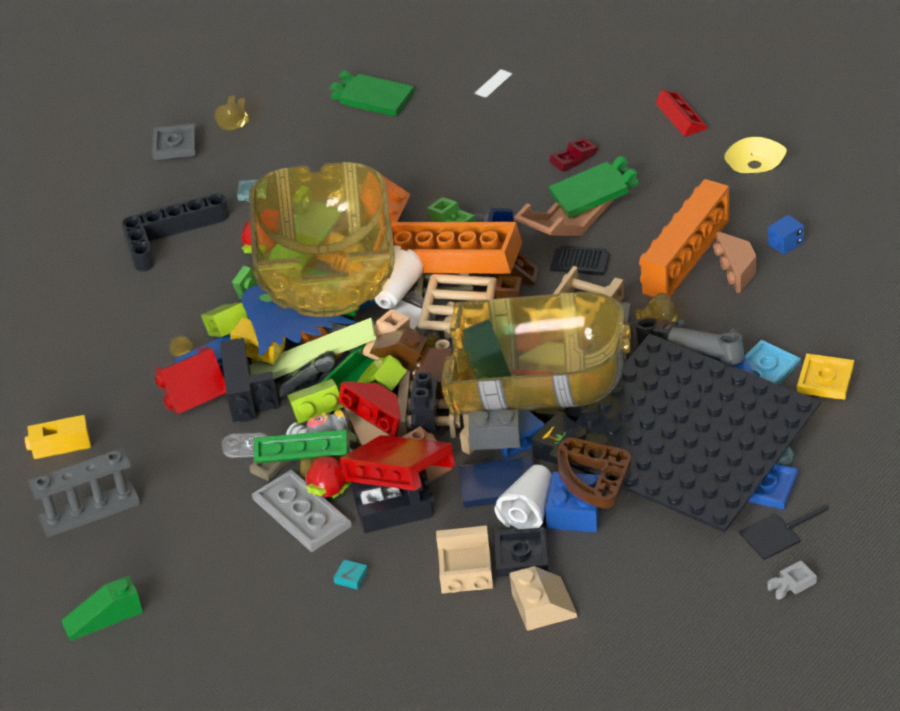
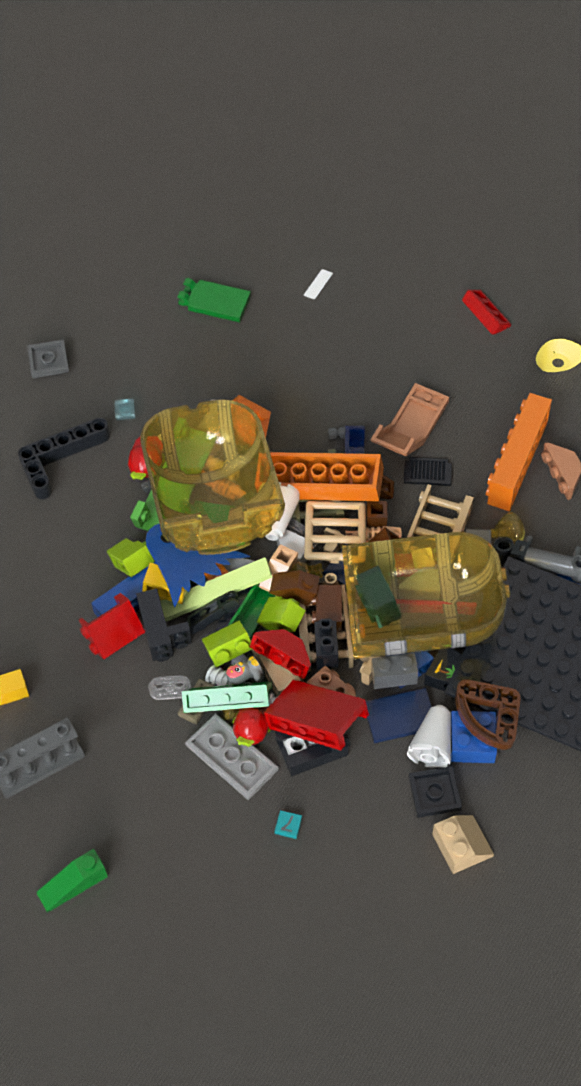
camera: 10 degrees left, 15 degrees up
(180, 346) = (93, 583): clear yellow plate -> none
(231, 115) = (95, 329): clear yellow piece -> none
(448, 211) = (308, 434): bright green brick -> none
(464, 559) = (387, 805): tan panel -> none
(576, 153) = (403, 359): dark red slope -> none
(594, 187) = (429, 397): green tile -> none

